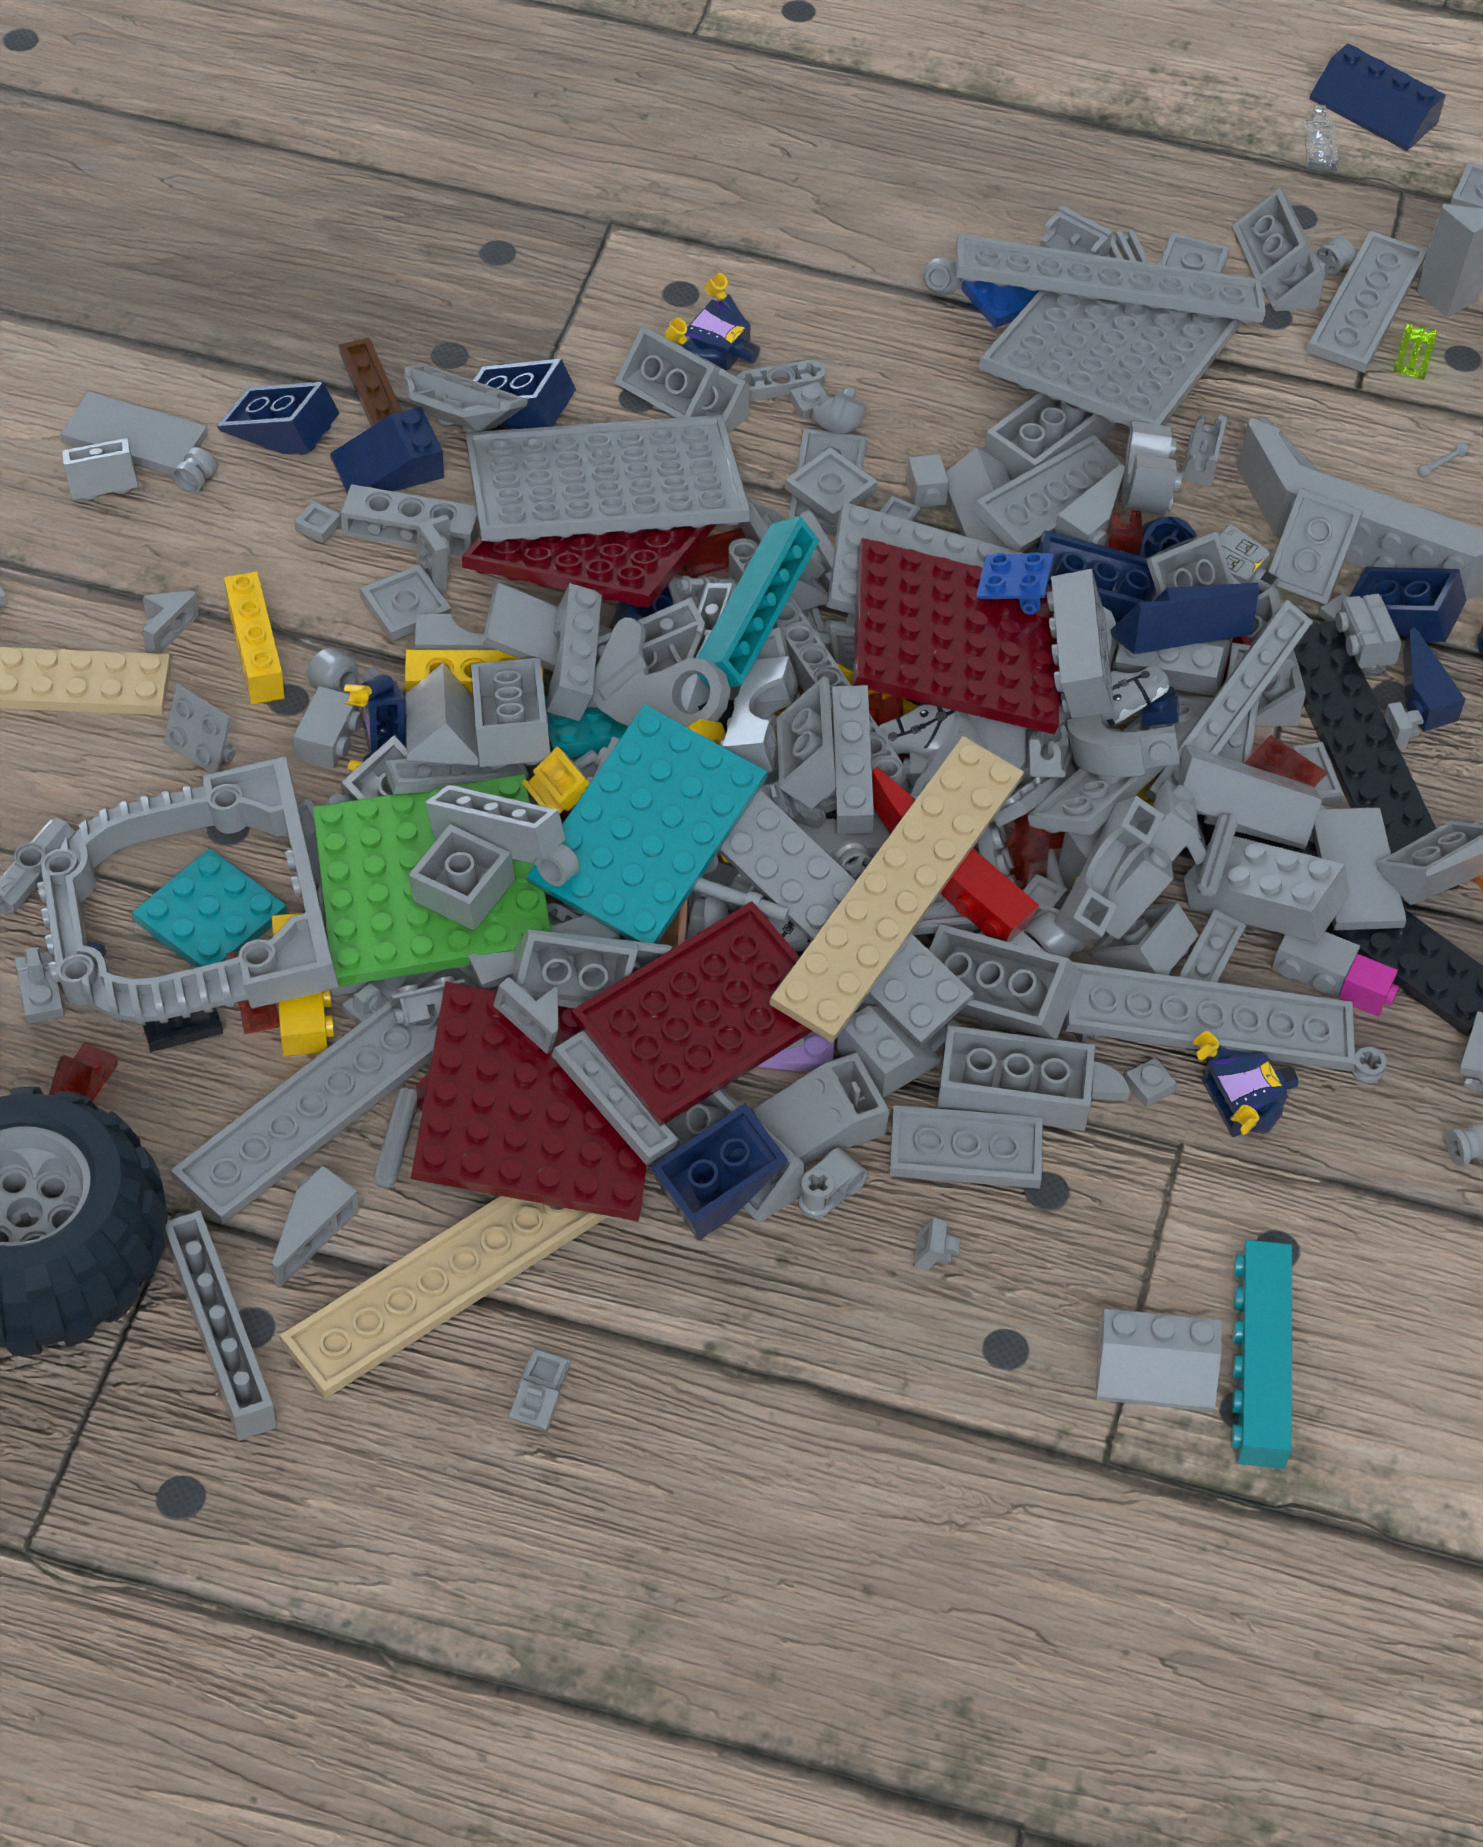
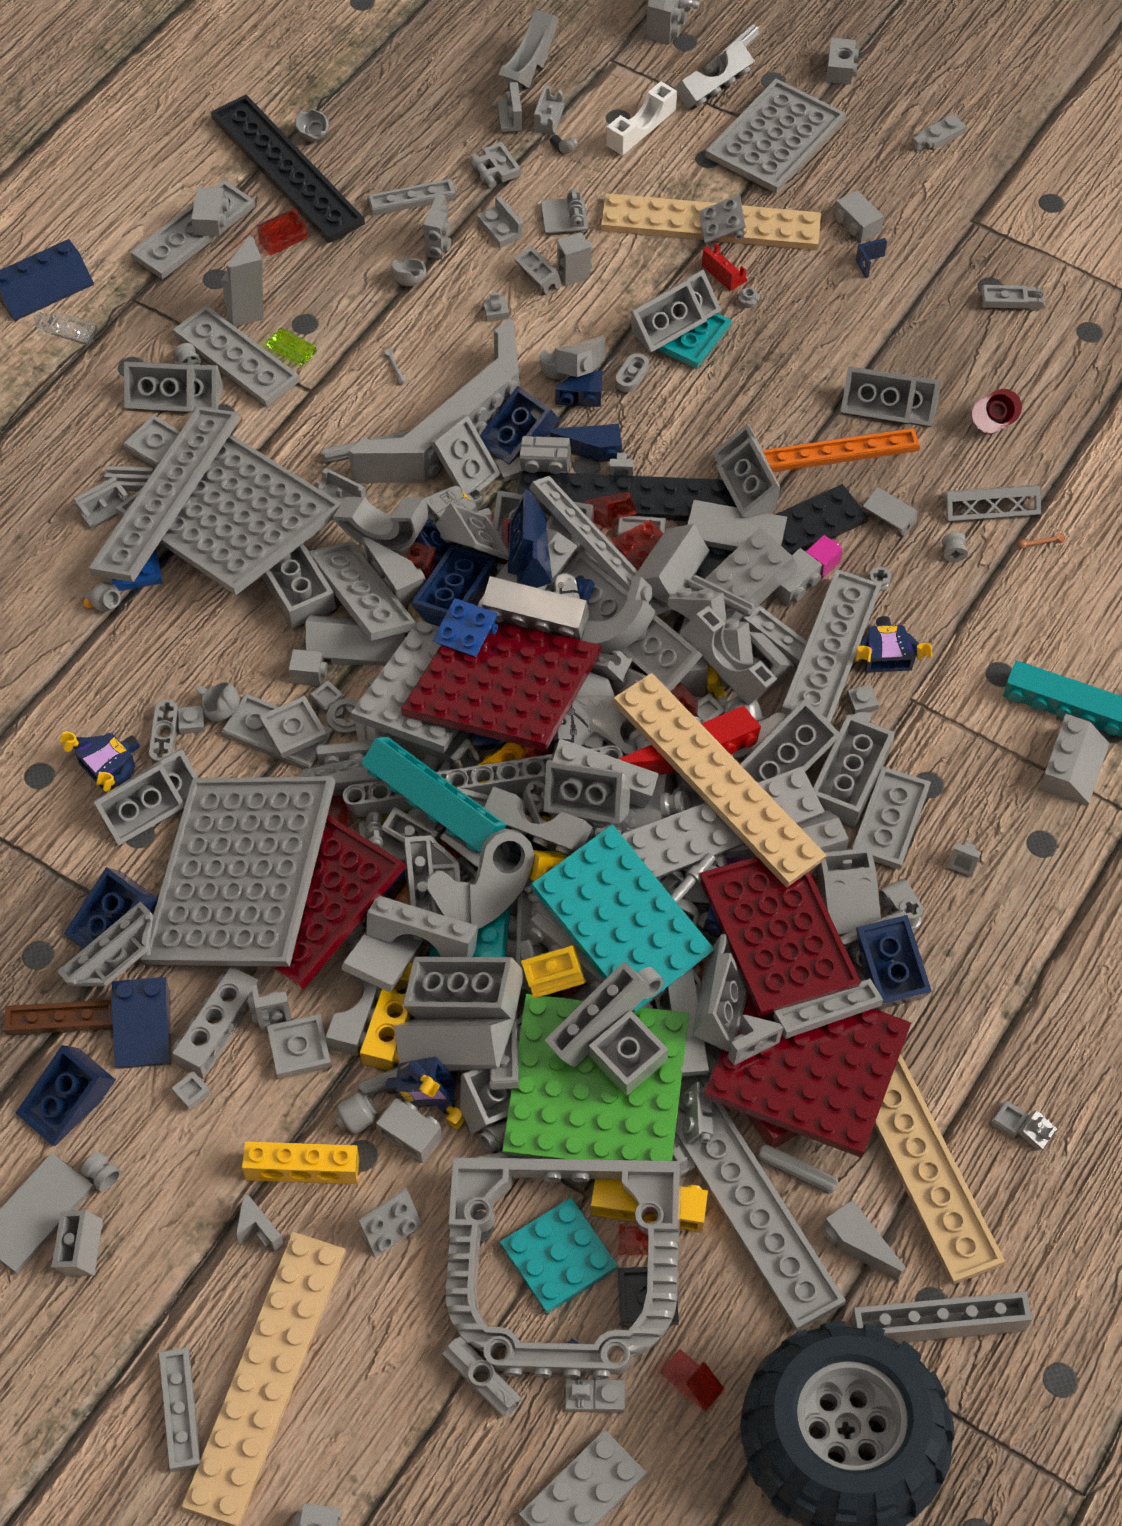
camera: 70 degrees left, 5 degrees up
(1319, 721) = (612, 507): none -> clear red slope

